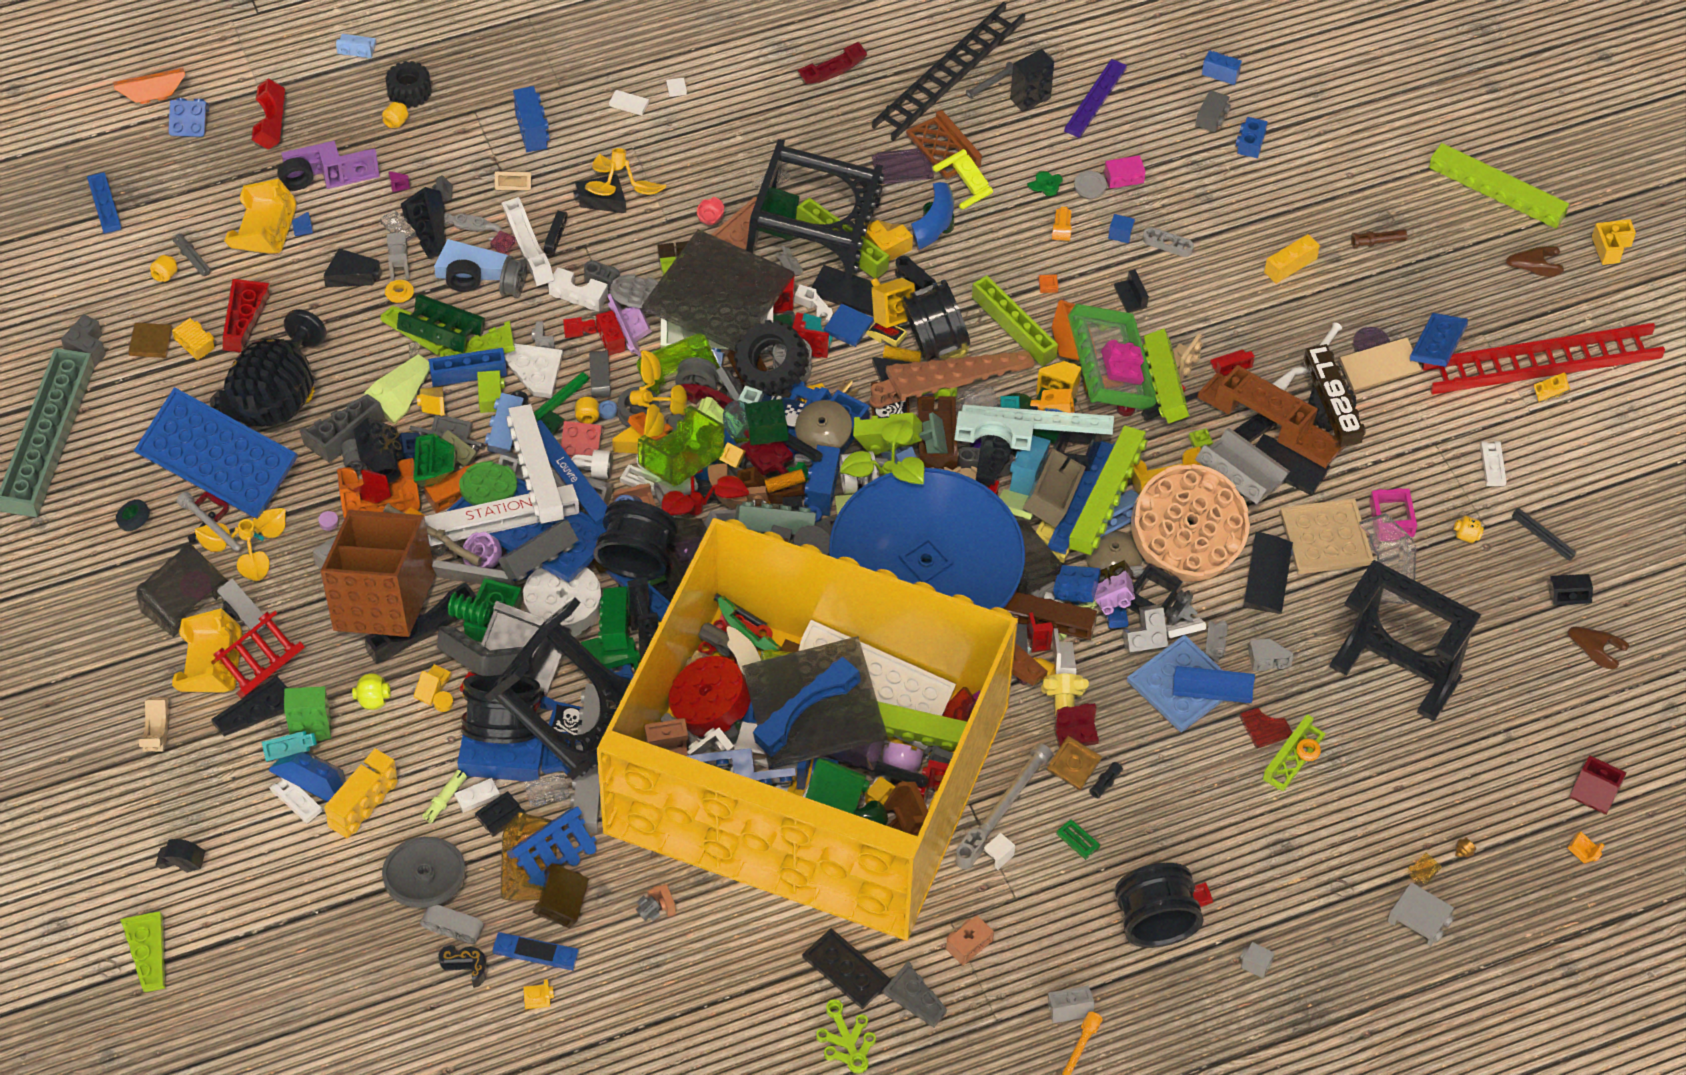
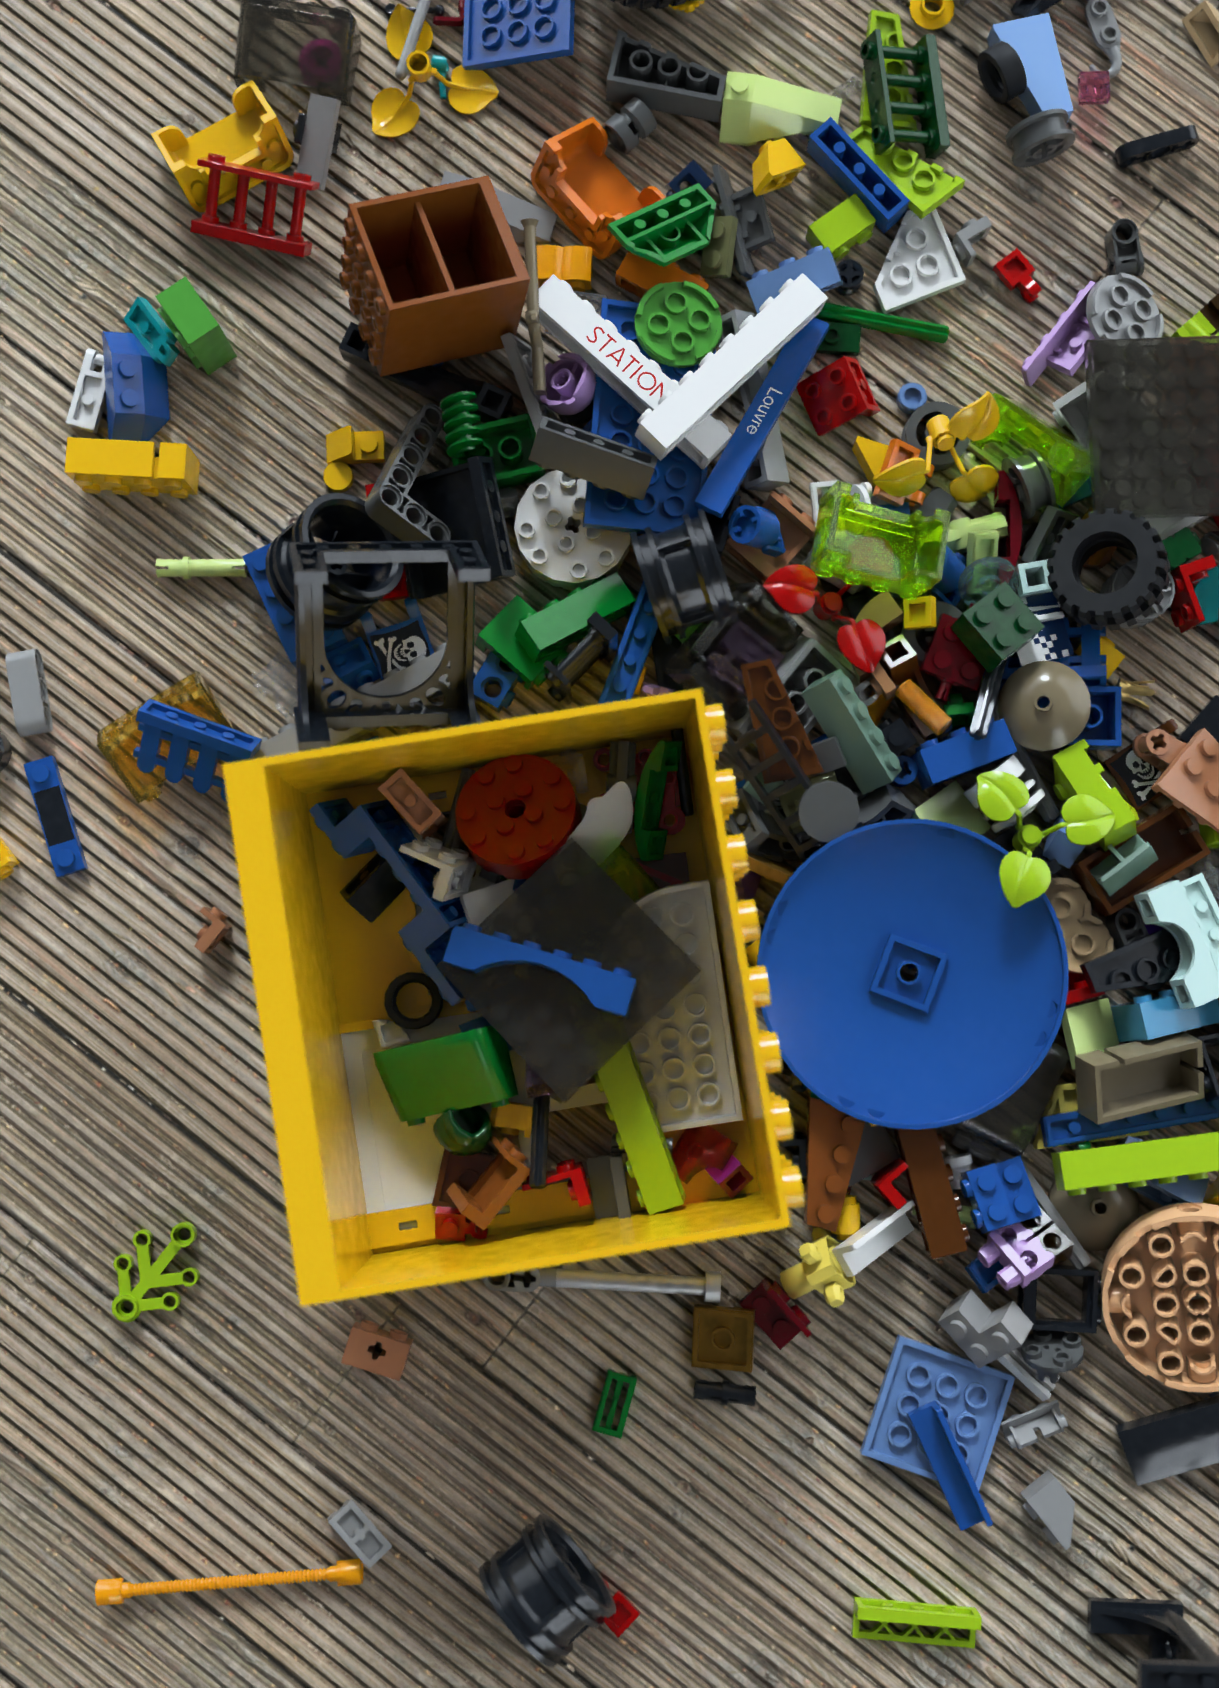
camera: 60 degrees right, 30 degrees up
(155, 724) = (86, 158): tan arch -> none
(252, 709) = (204, 261): black wing -> none
(328, 520) = (518, 159): lavender tile -> none
(371, 691) = (295, 381): neon yellow plant -> none
(374, 488) = (584, 182): red panel -> none
(379, 447) = (652, 150): black brick -> none
(423, 872) = (72, 614): dark grey dish -> none
(477, 795) = (230, 606): white plate -> none
(498, 813) = (216, 651): black plate -> none
(526, 240) = (1088, 146): white arch -> none
(561, 895) = (137, 803): dark brown panel -> none
(587, 410) = (888, 373): yellow head -> none
(590, 296) = (1080, 259): white arch -> none
(599, 374) = (959, 352): dark grey beam -> none
(599, 463) = (810, 441): white piece -> none
(610, 332) = (1033, 323): red brick -> none
(648, 908) = (185, 920): dark grey gear -> none
(846, 968) = (250, 1217): black tile -> none
(902, 756) = (581, 1119): lavender cylinder -> none
(913, 994) = (259, 1326): dark grey wing -> none
(1000, 849) = (530, 1315): white panel -> none
(1264, 729) = (932, 1562): clear red tile -> none
(1305, 755) = (939, 1652): light orange piece -> none

